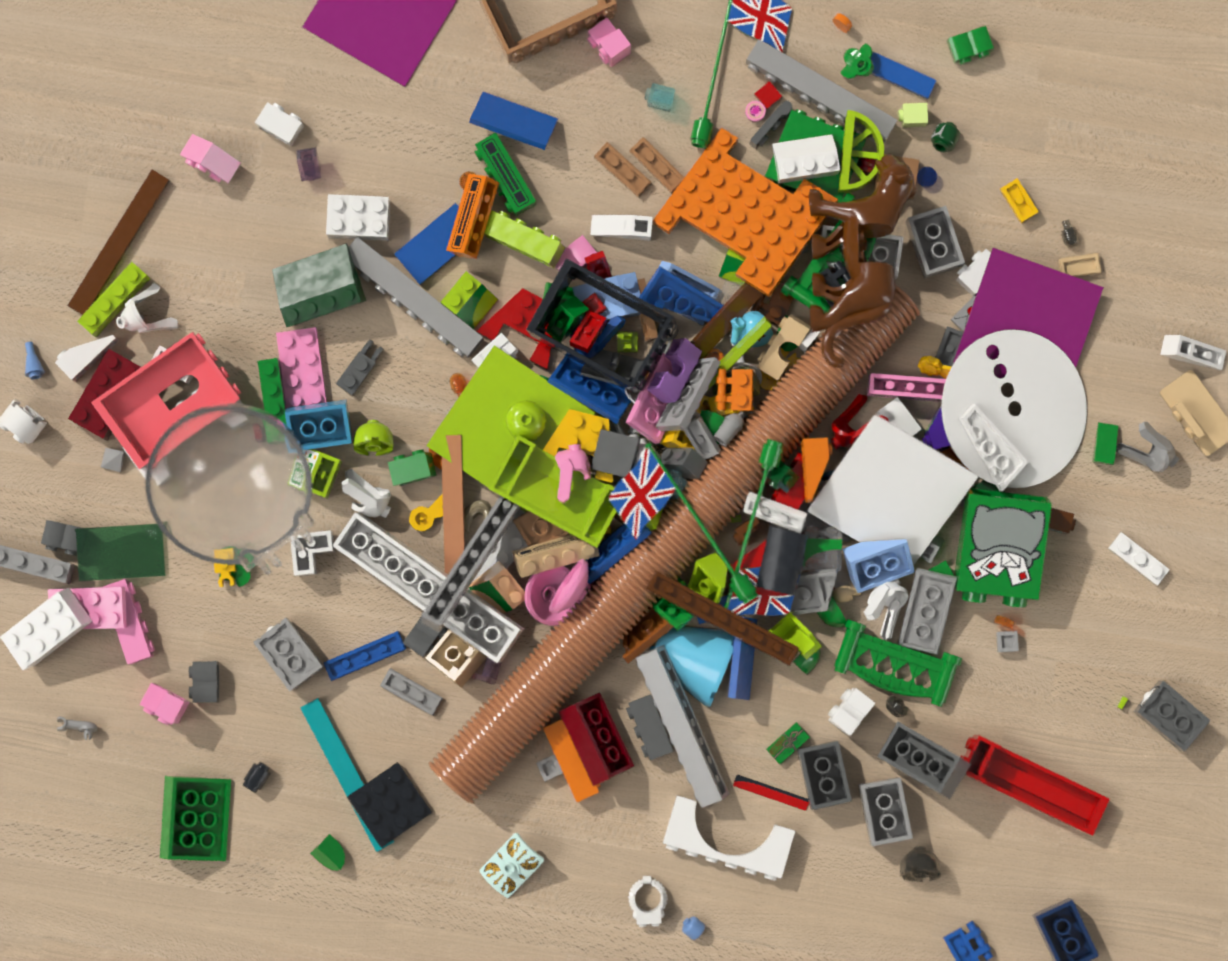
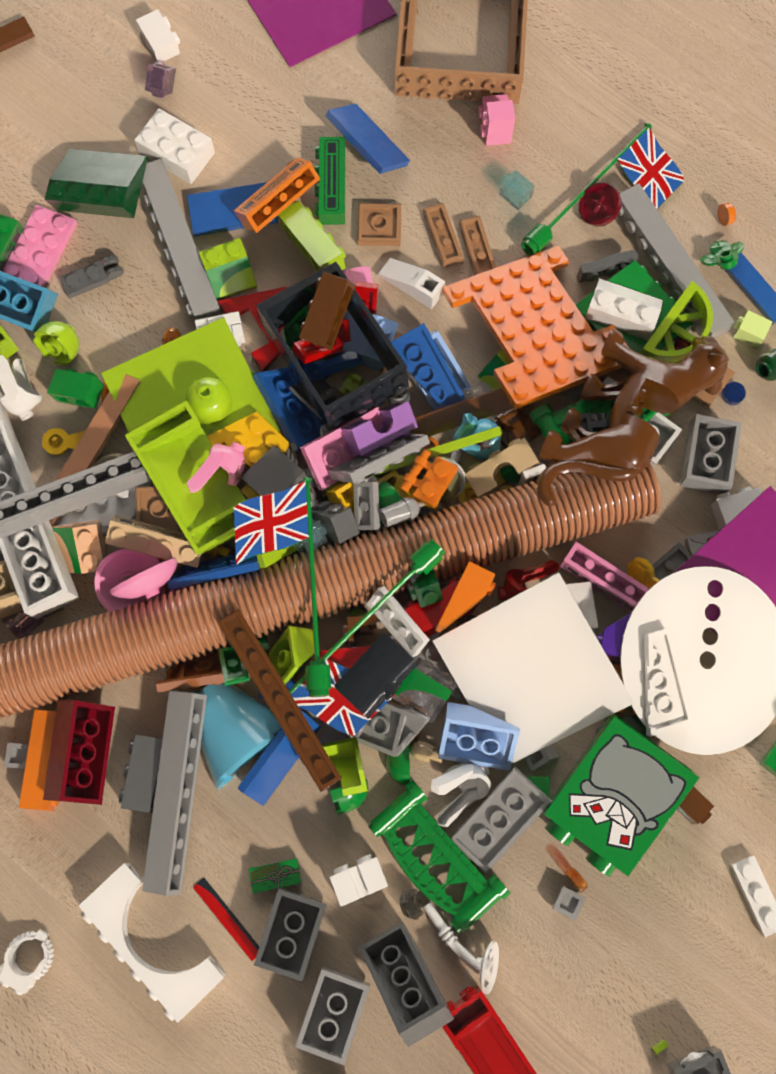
camera: 30 degrees right, 10 degrees down
(209, 157) = (78, 29): bright pink brick -> none
(565, 189) = (379, 224): none -> medium nougat tile
(584, 304) = (326, 310): none -> reddish brown brick
(693, 927) = (55, 1019): medium blue piece -> none
(736, 73) = (600, 204): none -> dark red tile
(755, 111) = (598, 248): tile -> none
(768, 95) = (618, 241): red tile -> none
(972, 718) = (485, 966): none -> white dish

